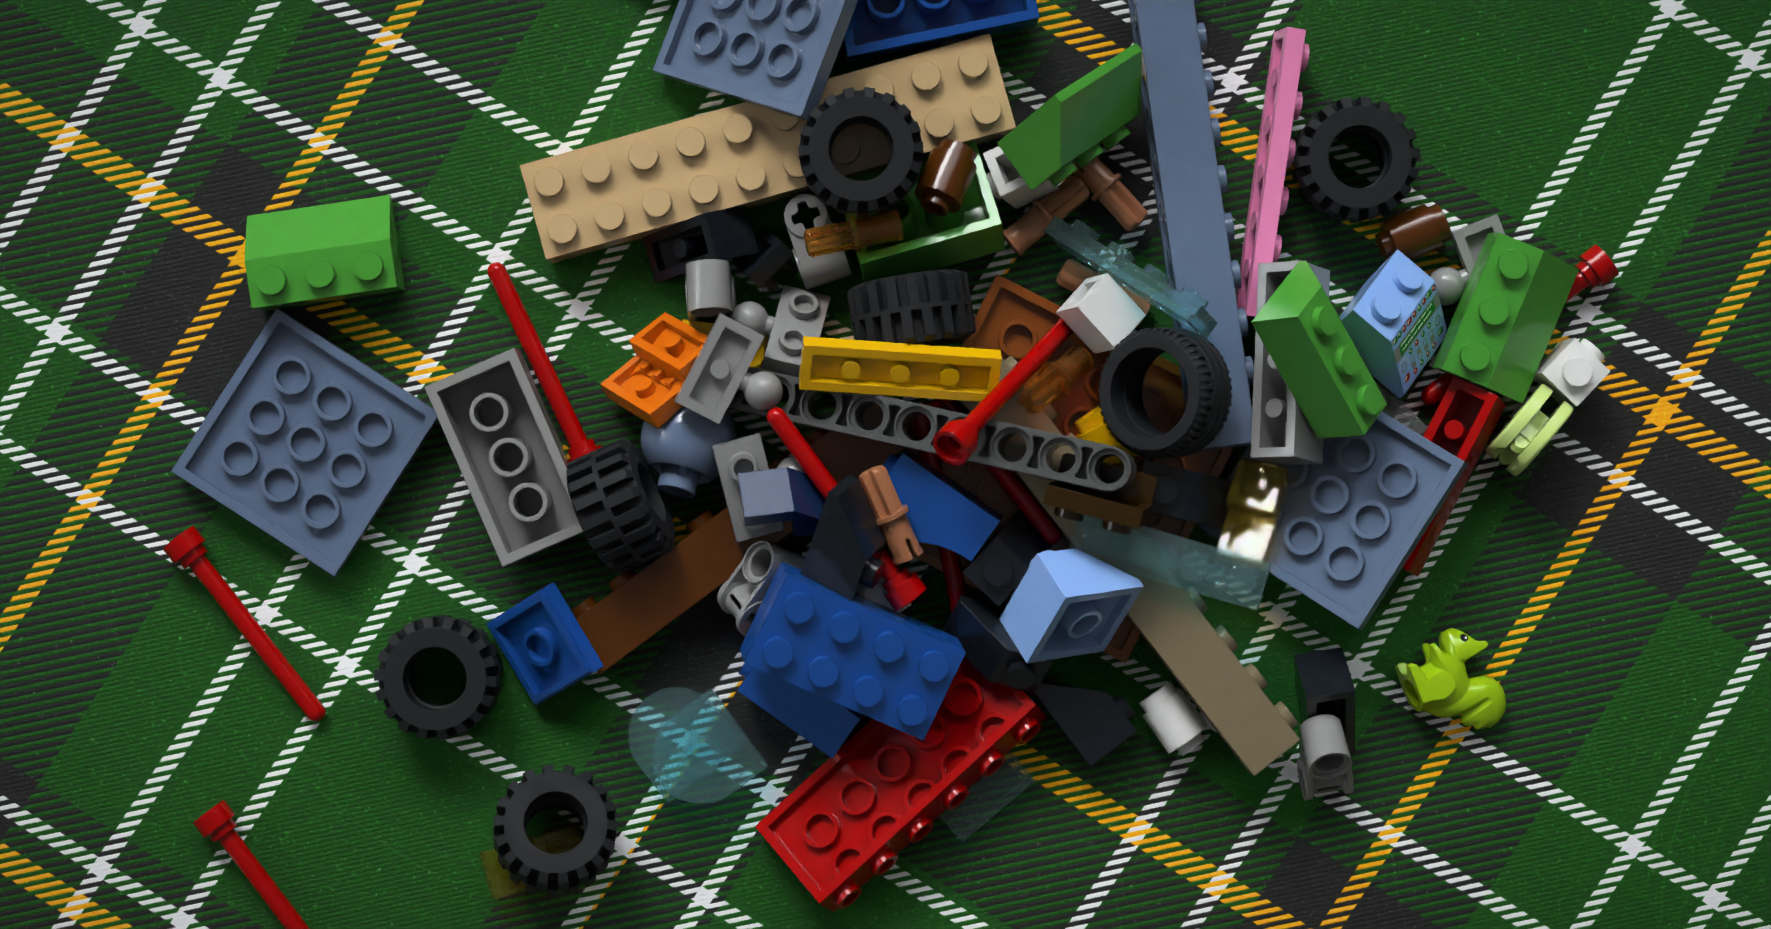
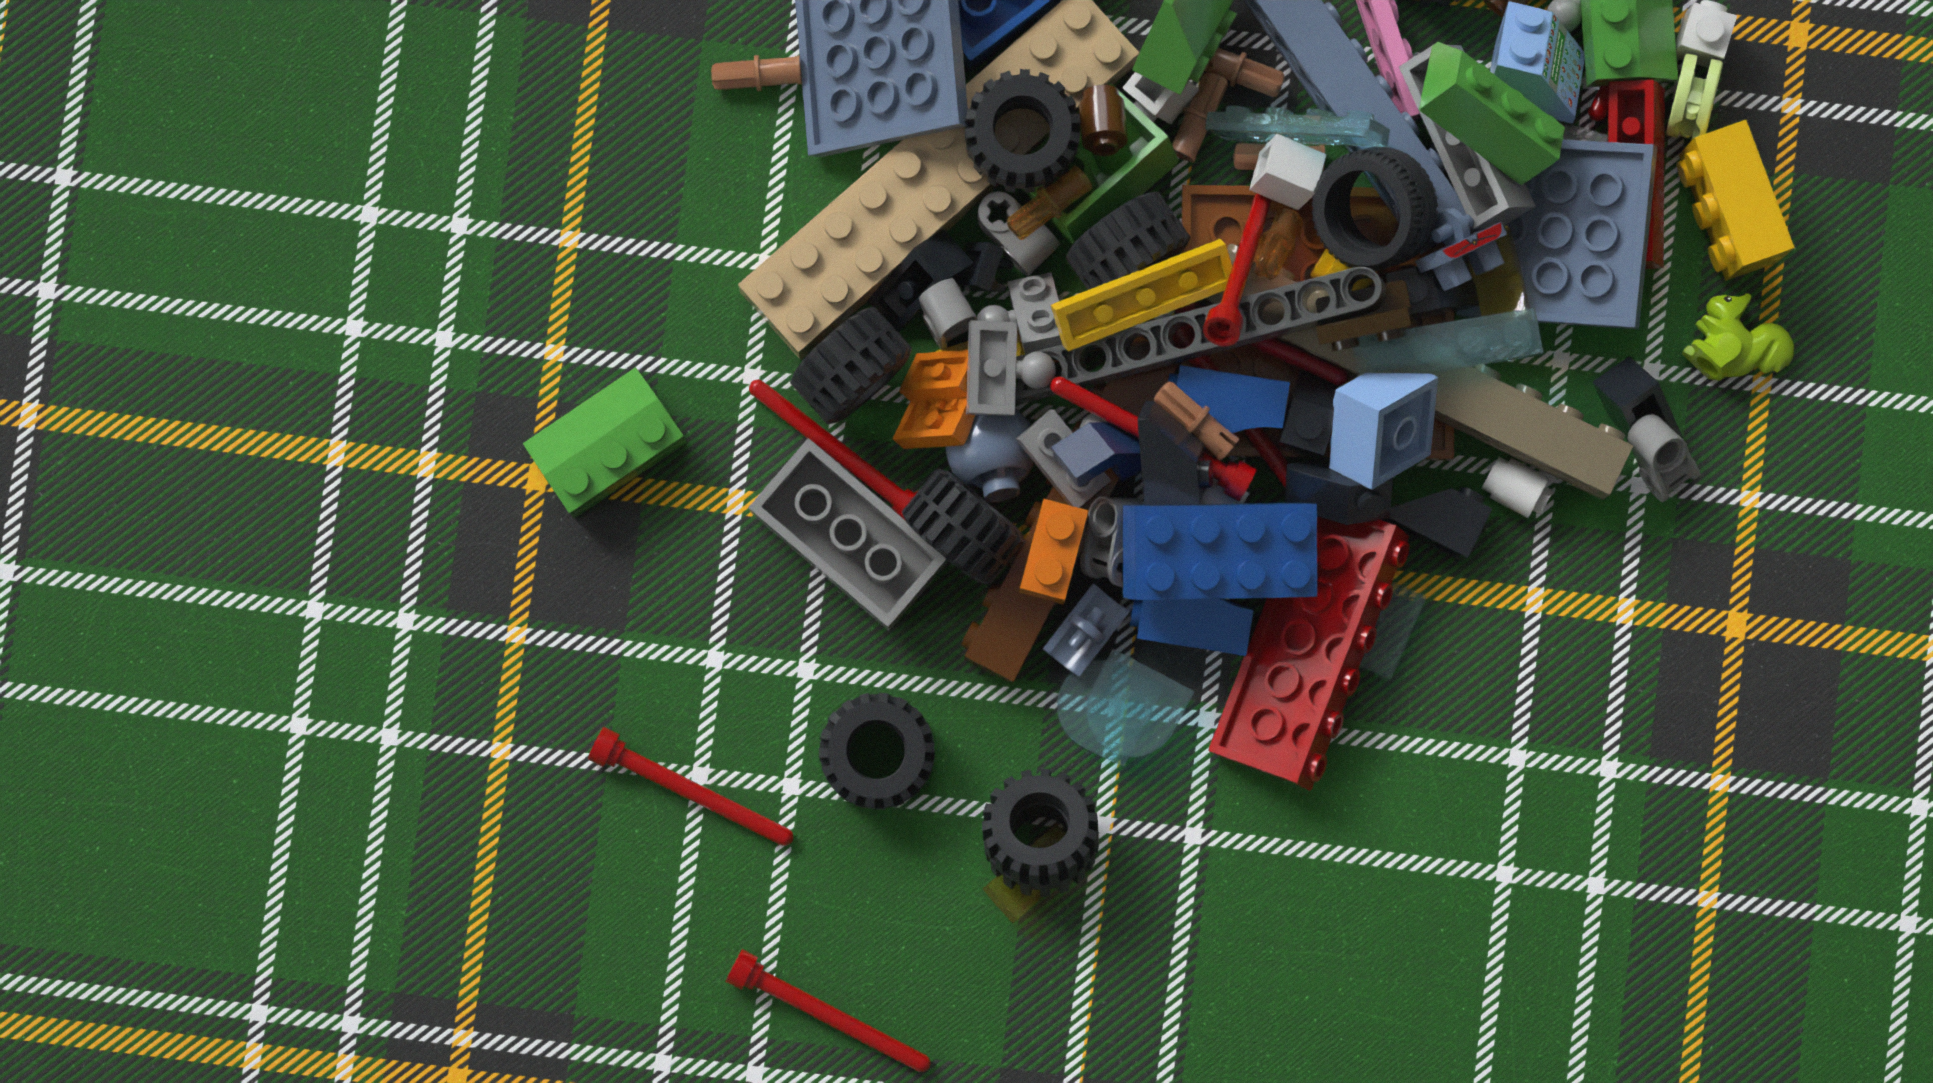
camera: 30 degrees left, 5 degrees down
(306, 442) = (666, 608): sand blue plate -> none
(544, 644) = (953, 679): blue tile -> none
(590, 296) = (851, 365): none -> black tyre
(694, 572) = (1053, 551): none -> orange brick
(694, 657) = (1085, 630): none -> sand blue hips
(1246, 475) = (1454, 232): none -> sand blue hips
(1517, 548) = (1734, 201): none -> yellow brick

